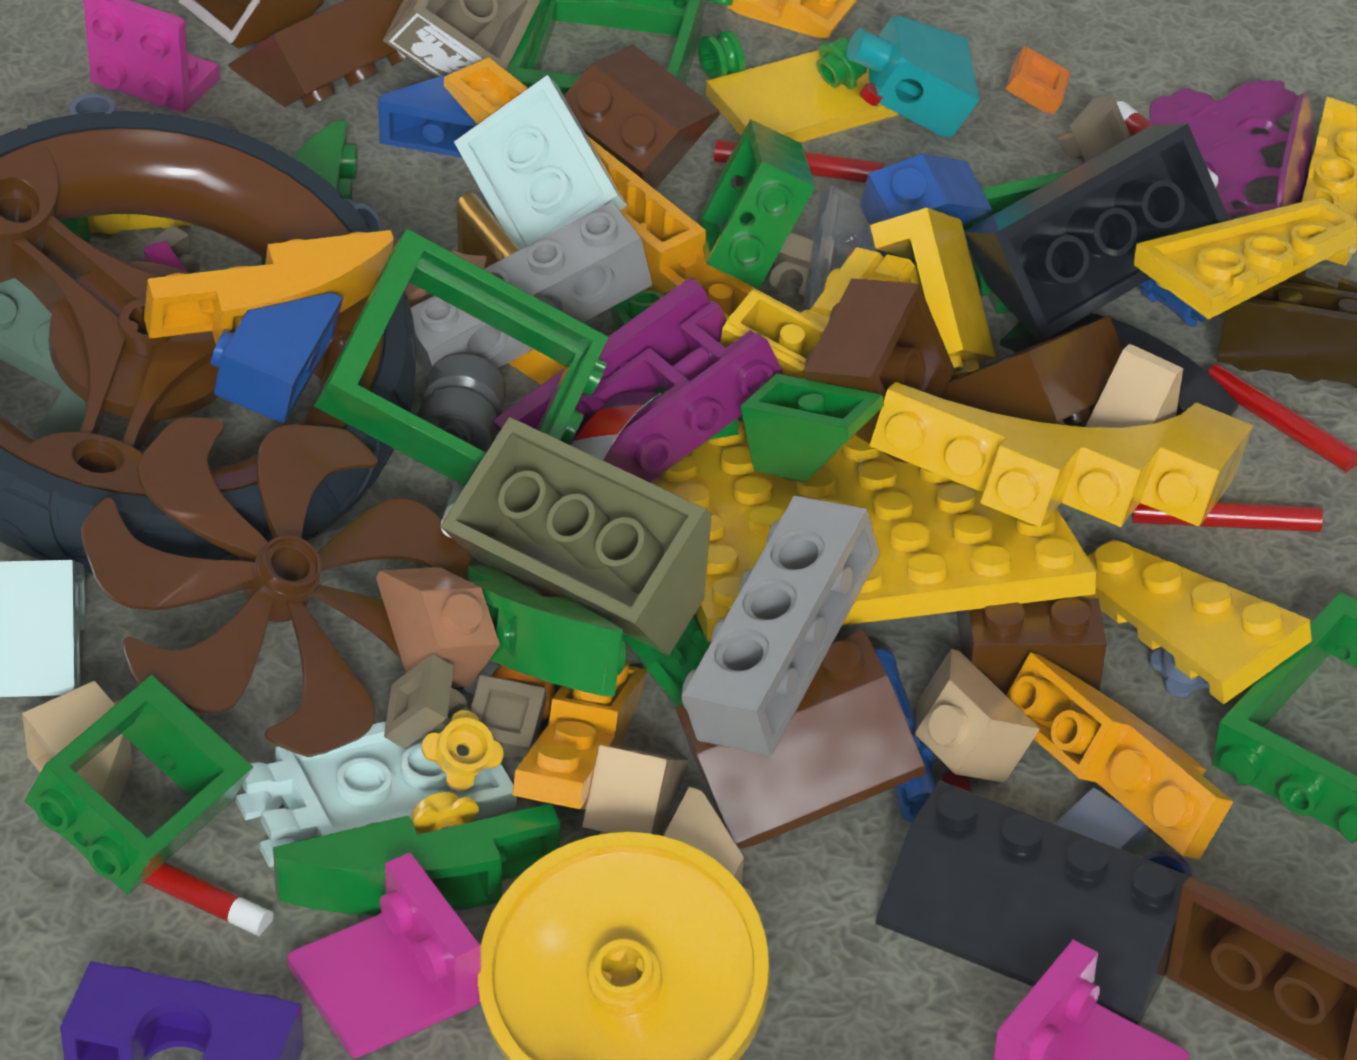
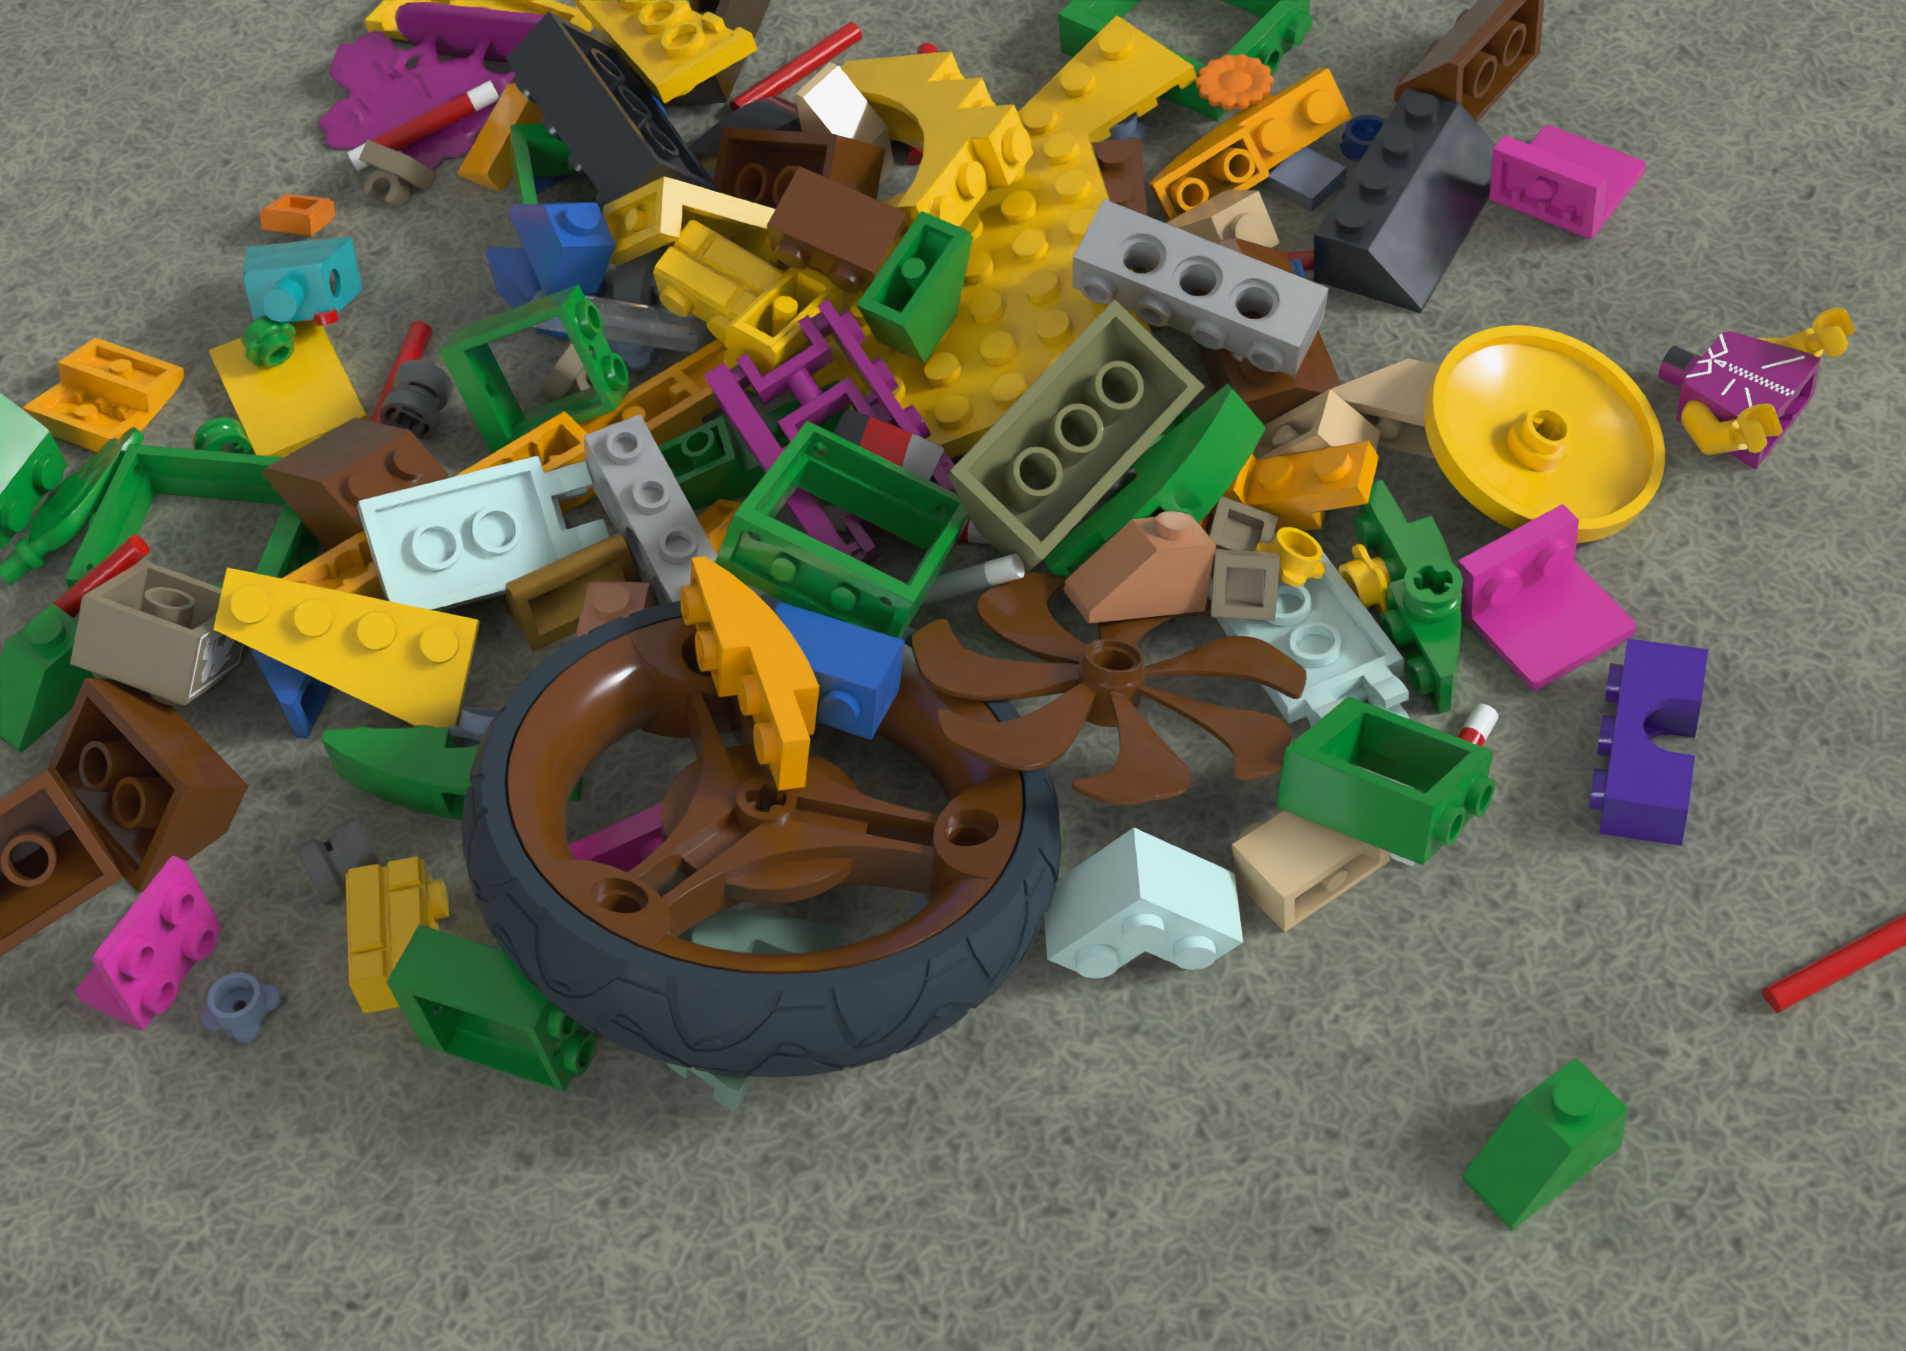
camera: 80 degrees left, 10 degrees up
(376, 819) = (1423, 603): none -> green bush
(427, 127) = (368, 647): none -> yellow wing
(1217, 734) = (1234, 82): none -> orange piece

